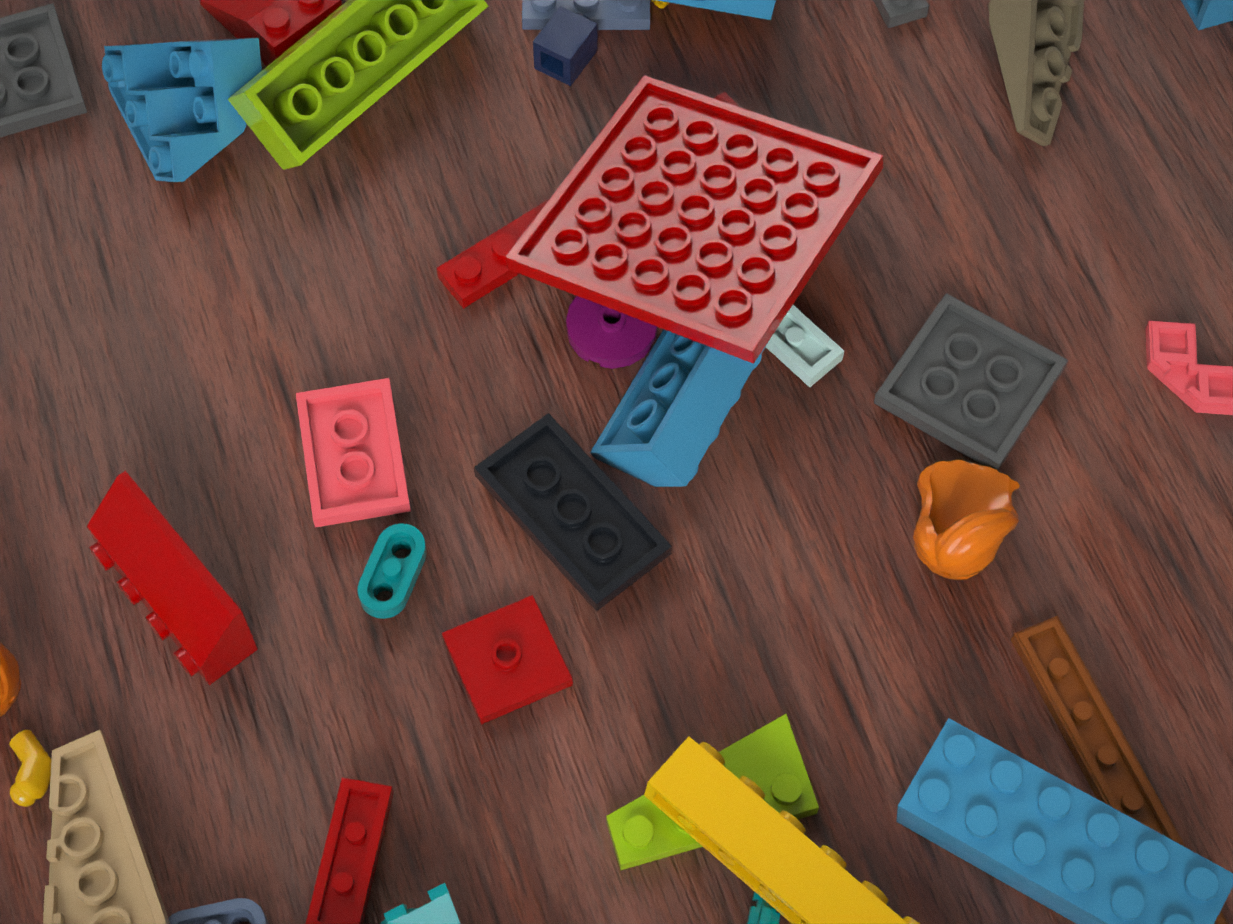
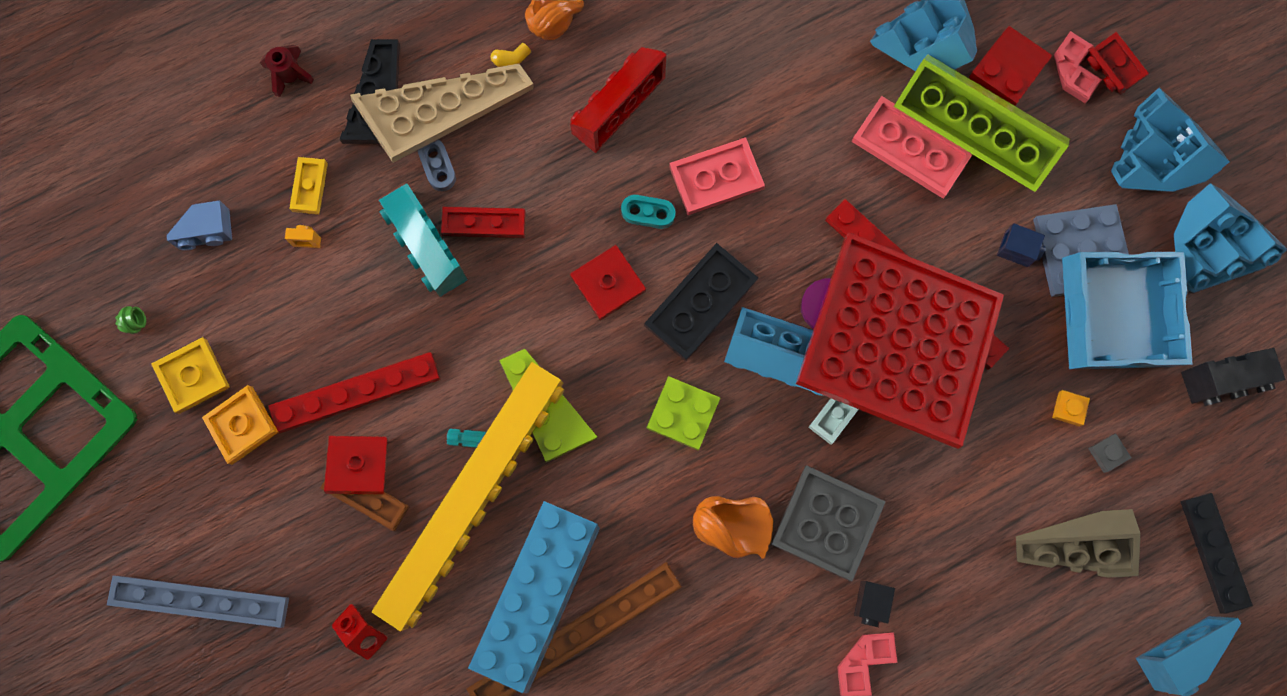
camera: 80 degrees right, 15 degrees up
(370, 161) = (911, 147): none -> coral plate
(760, 571) = (683, 413): none -> lime plate
(826, 34) = (1071, 408): none -> light orange plate
(1105, 334) = (874, 603): none -> black brick

